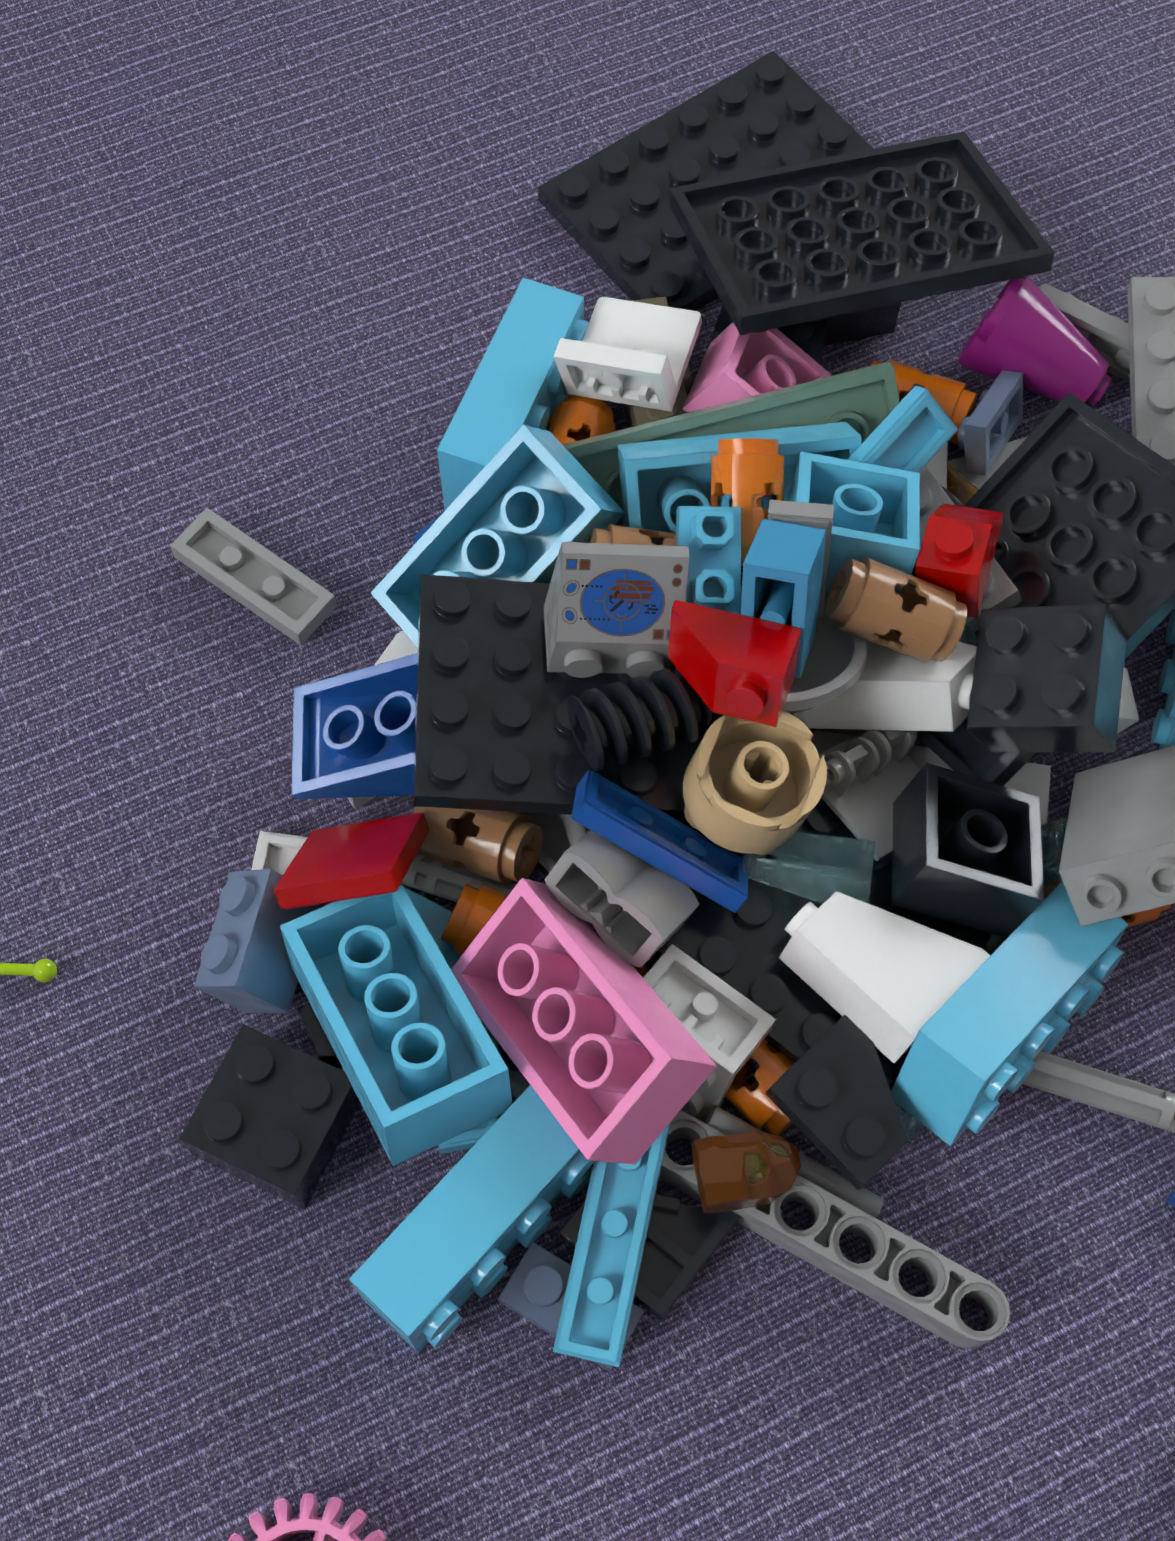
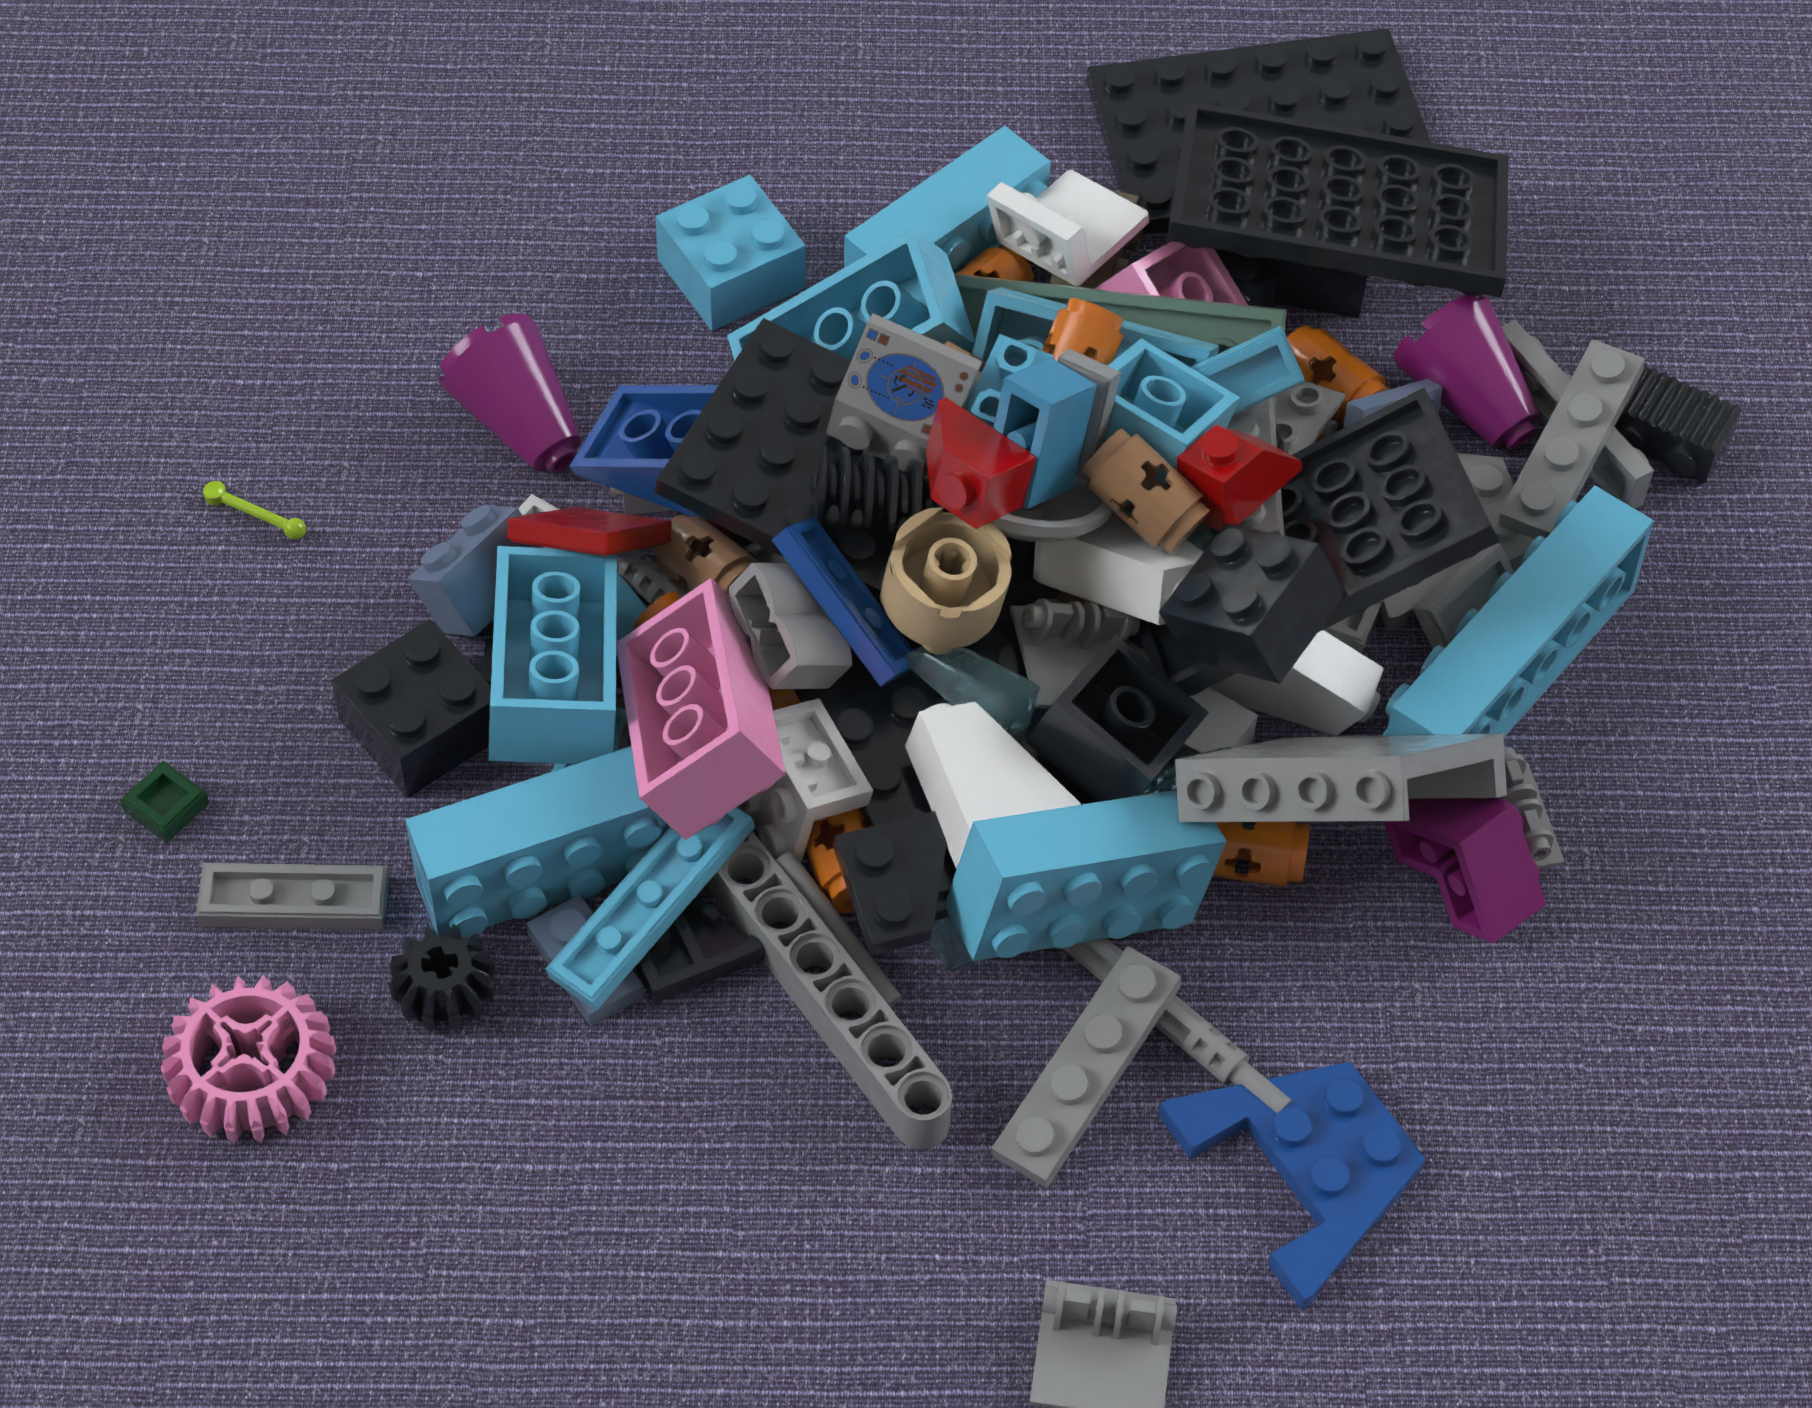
camera: 25 degrees right, 10 degrees down
(66, 1335) = (164, 801): none -> dark green tile
(195, 737) = (514, 392): none -> magenta cone
(249, 1378) = (293, 896): none -> light grey tile
(254, 576) = (641, 292): light grey plate -> none
(319, 500) = (731, 252): none -> medium azure brick
(447, 1427) = (418, 972): none -> black gear
(743, 1170) = (779, 897): reddish brown rock -> none
(1093, 1194) = (1086, 1067): none -> light grey plate

